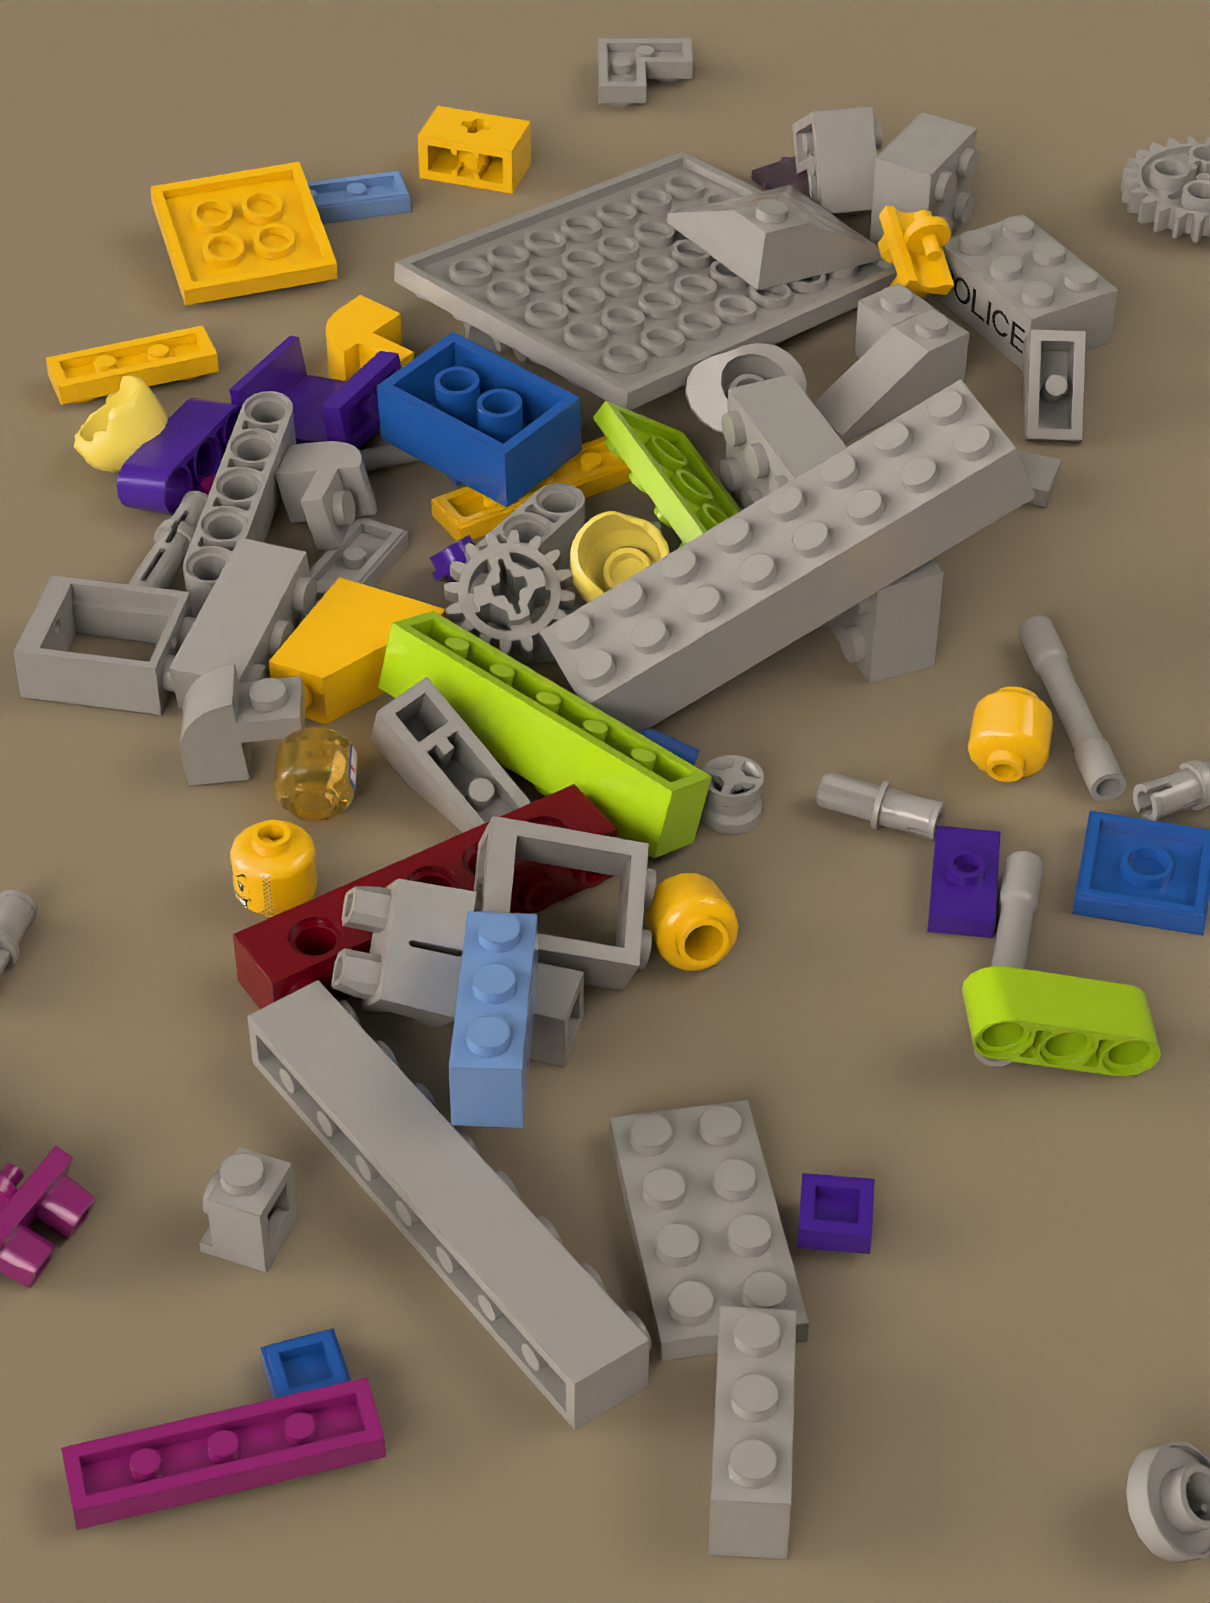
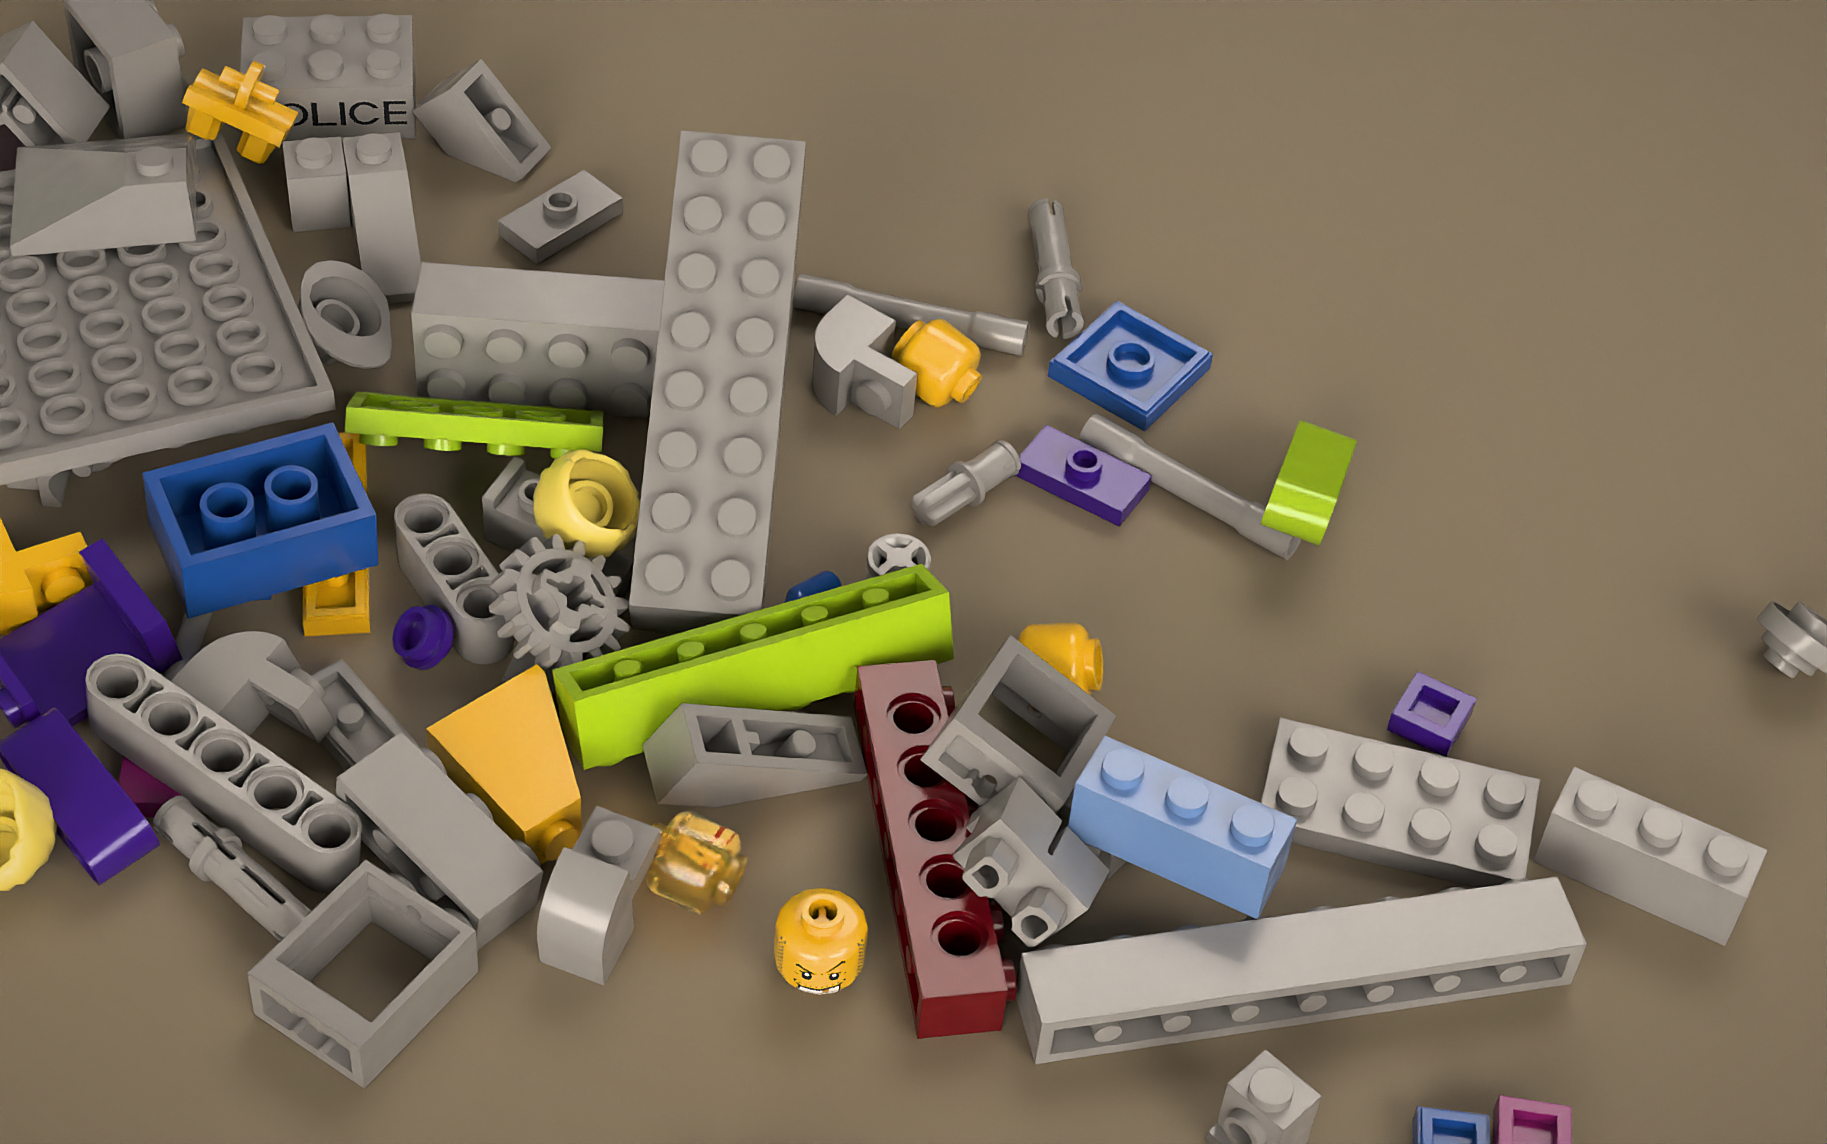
camera: 70 degrees left, 5 degrees up
(957, 676) = (856, 364): none -> light grey brick

